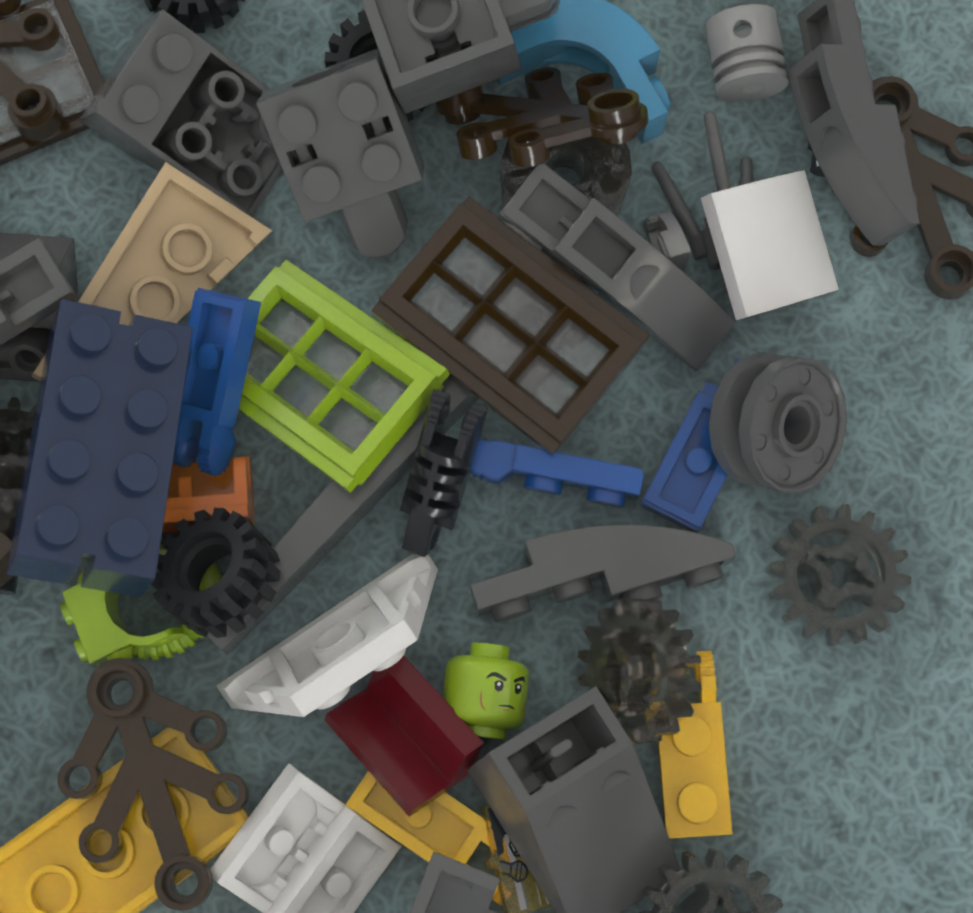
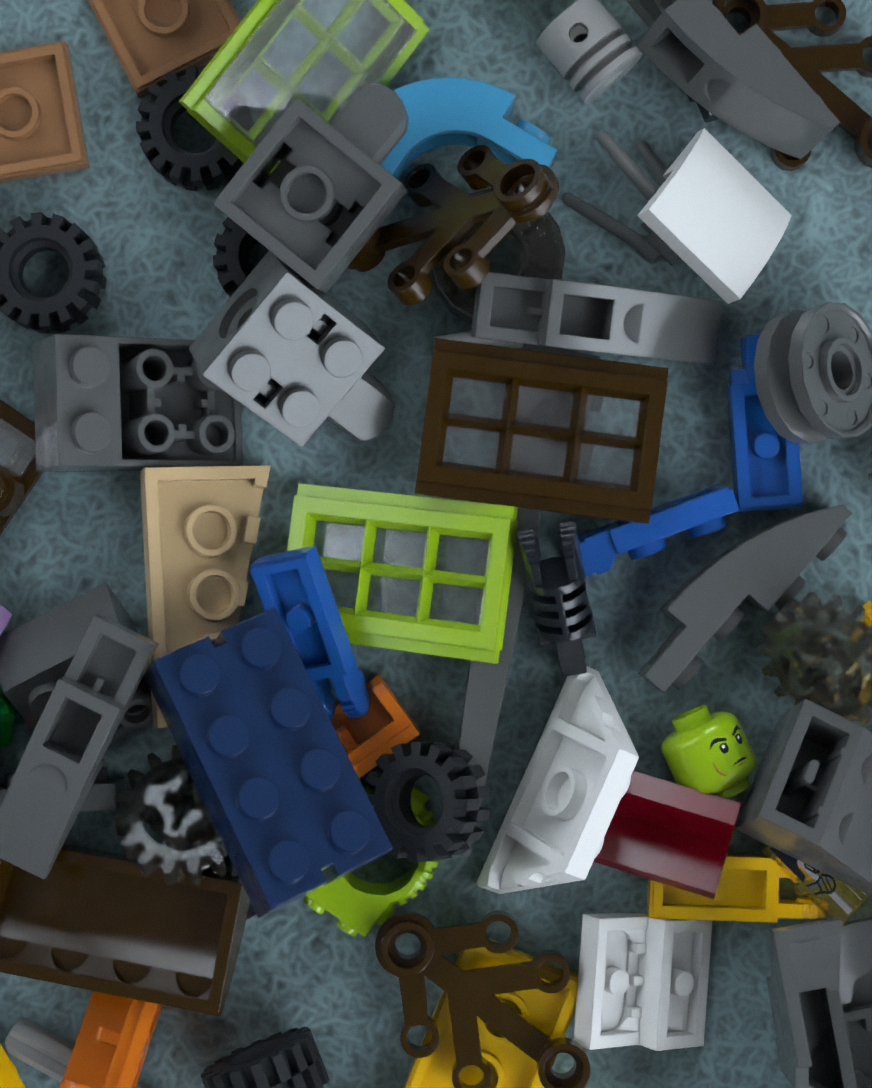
camera: 35 degrees left, 10 degrees up
(669, 241) = (624, 273): light grey tile -> none

